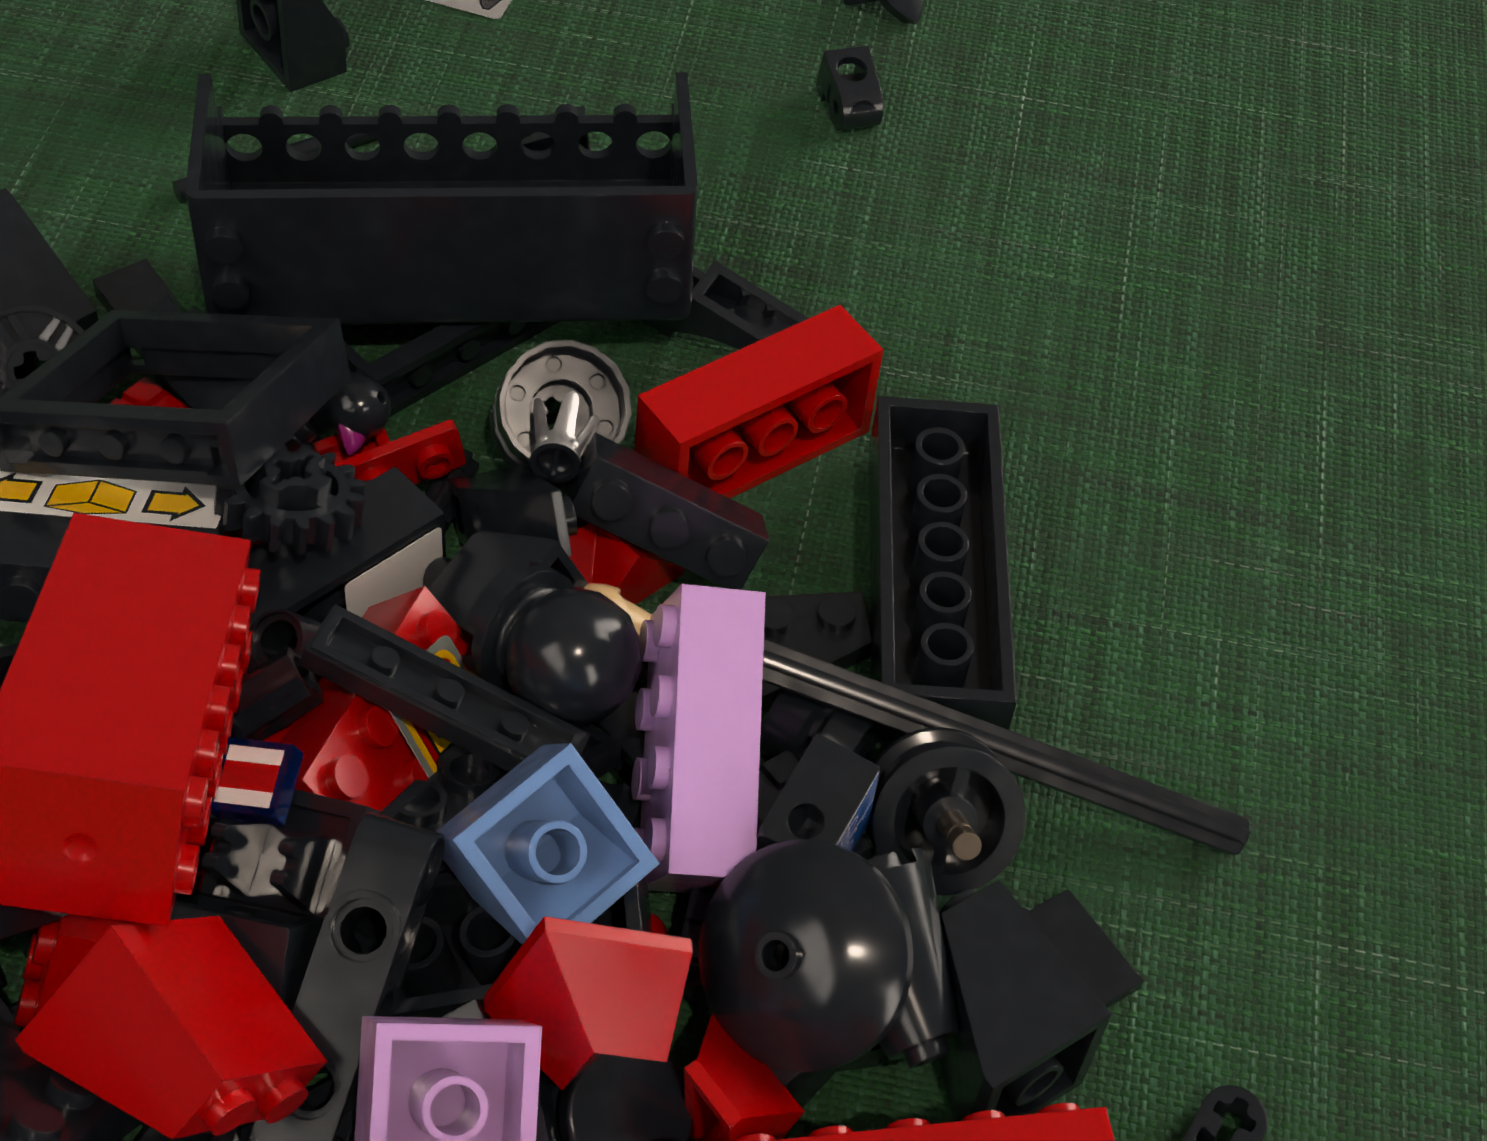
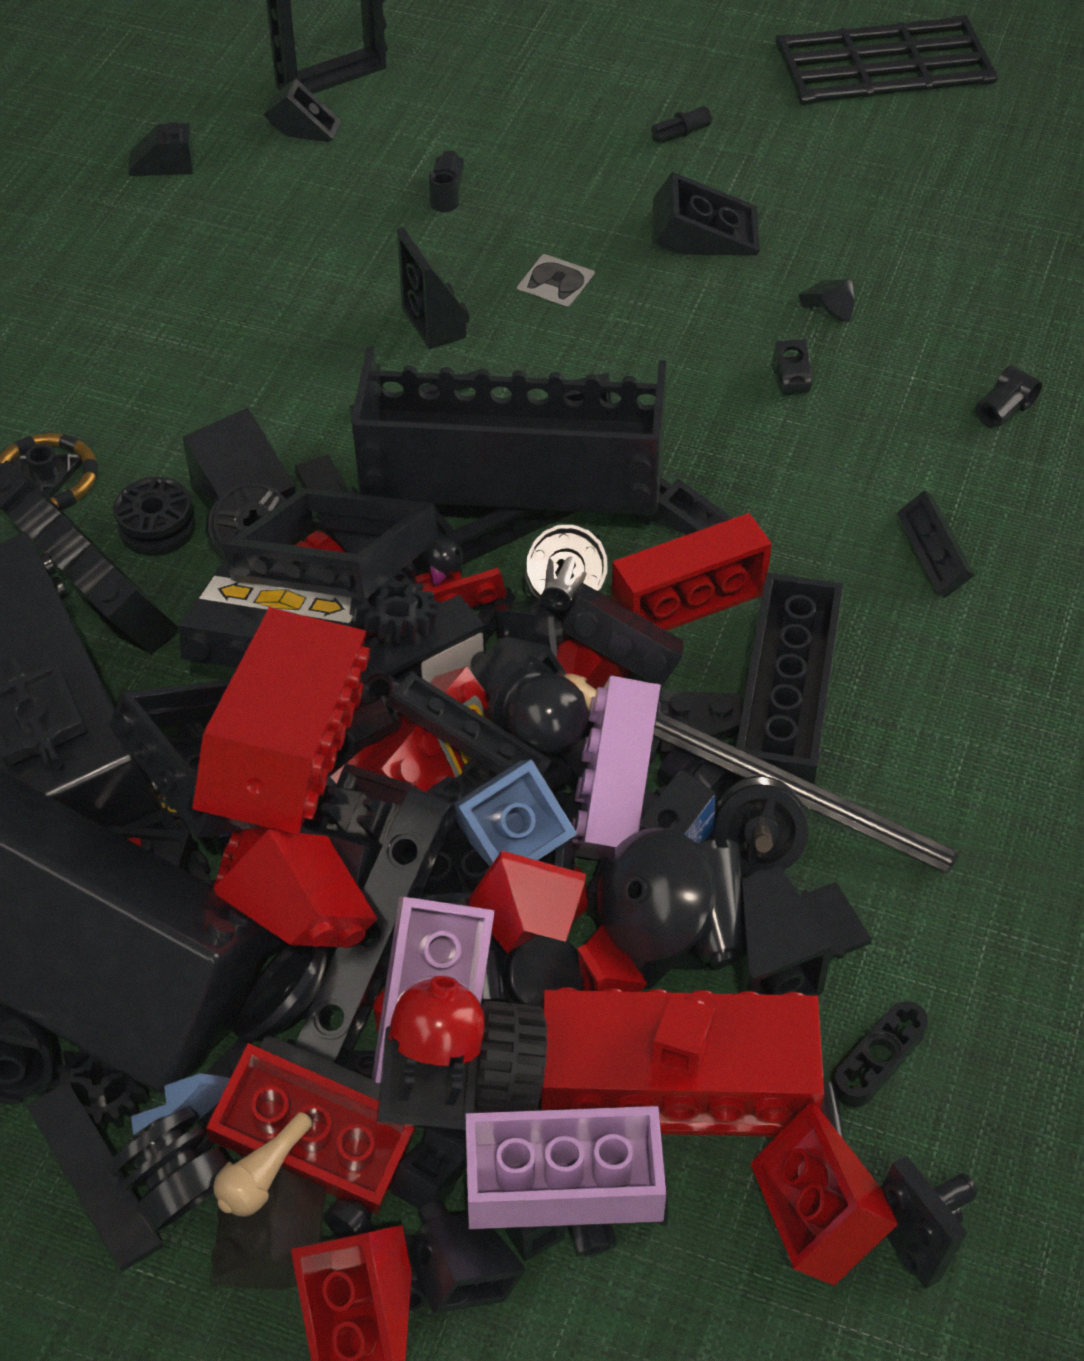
camera: 15 degrees right, 0 degrees up
(257, 781) = (355, 766): tile -> none
(1112, 337) = (935, 544): none -> black plate
(1172, 111) = (1011, 392): none -> black piece

